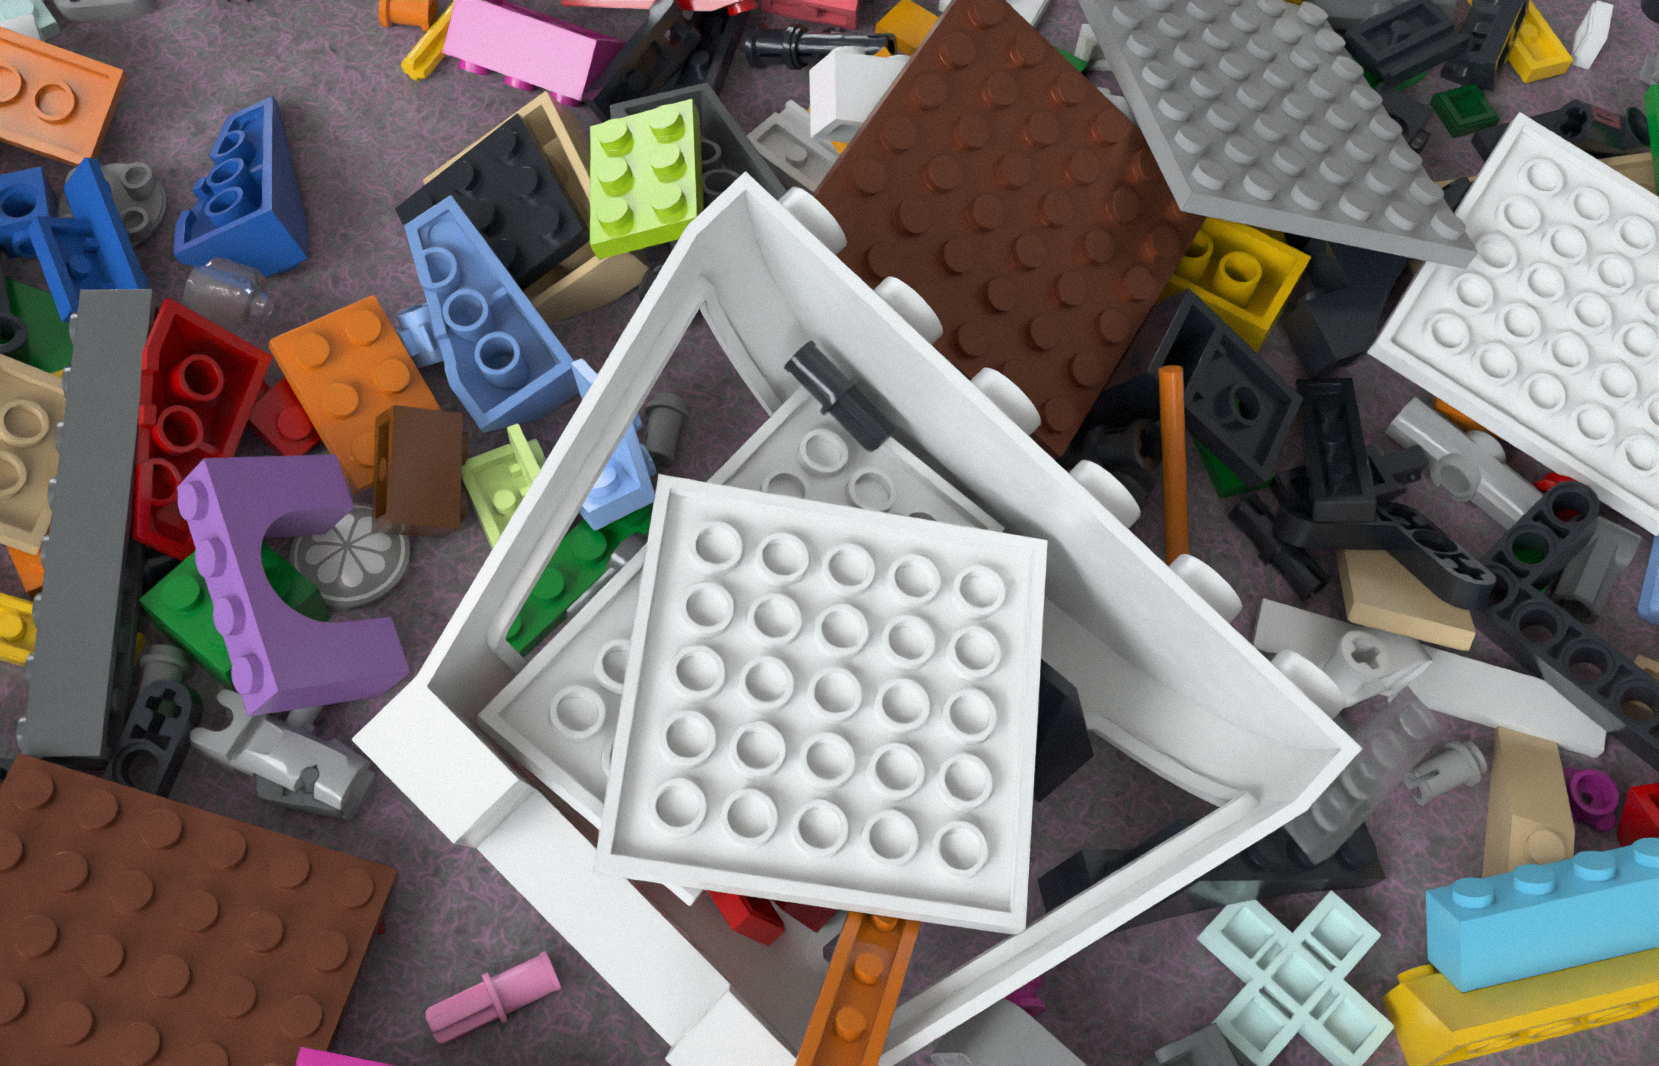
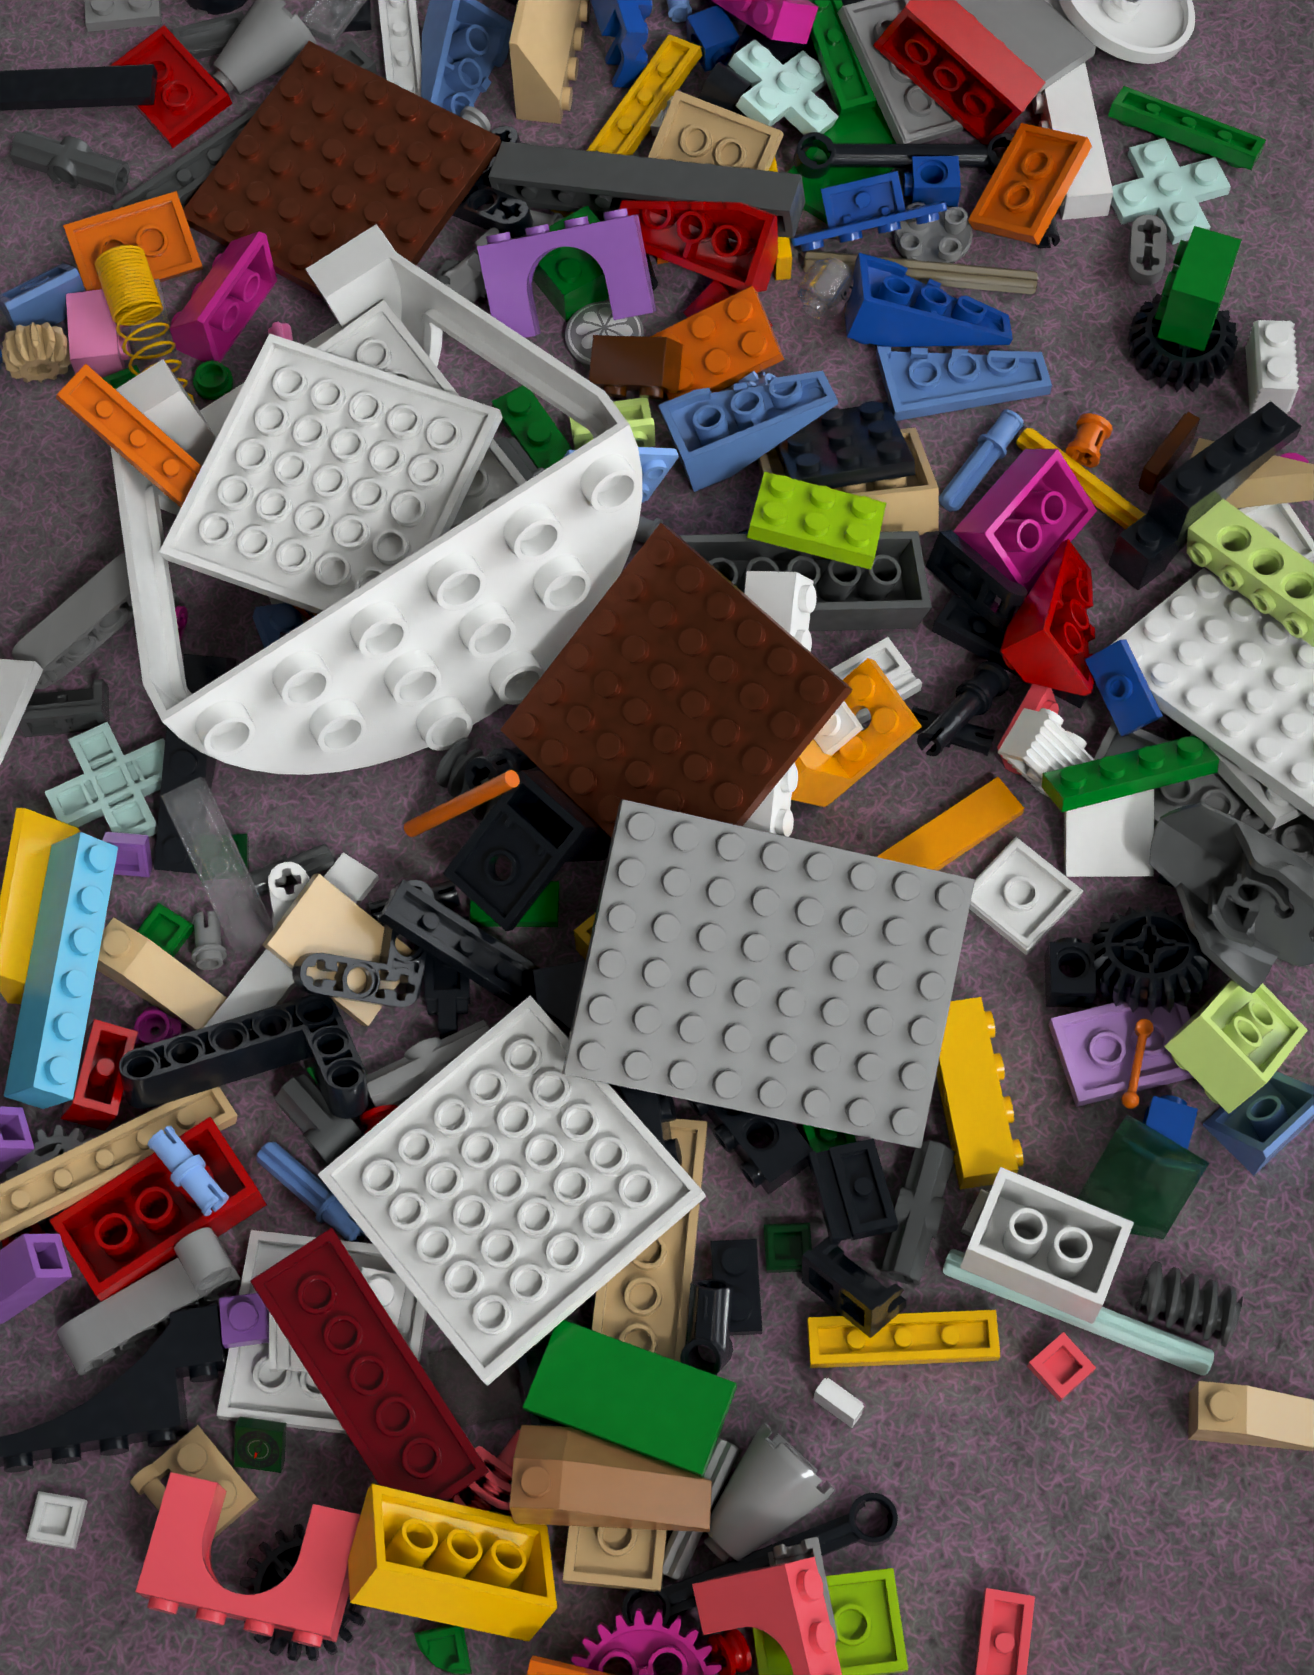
camera: 115 degrees right, 5 degrees up
(175, 187) = (949, 273): none -> dark tan axle
(347, 152) = (947, 382): none -> medium blue wing
(442, 96) = (989, 449): none -> medium blue axle
(1389, 916) = (132, 854): none -> medium lavender tile
(1456, 839) = (166, 929): none -> green tile

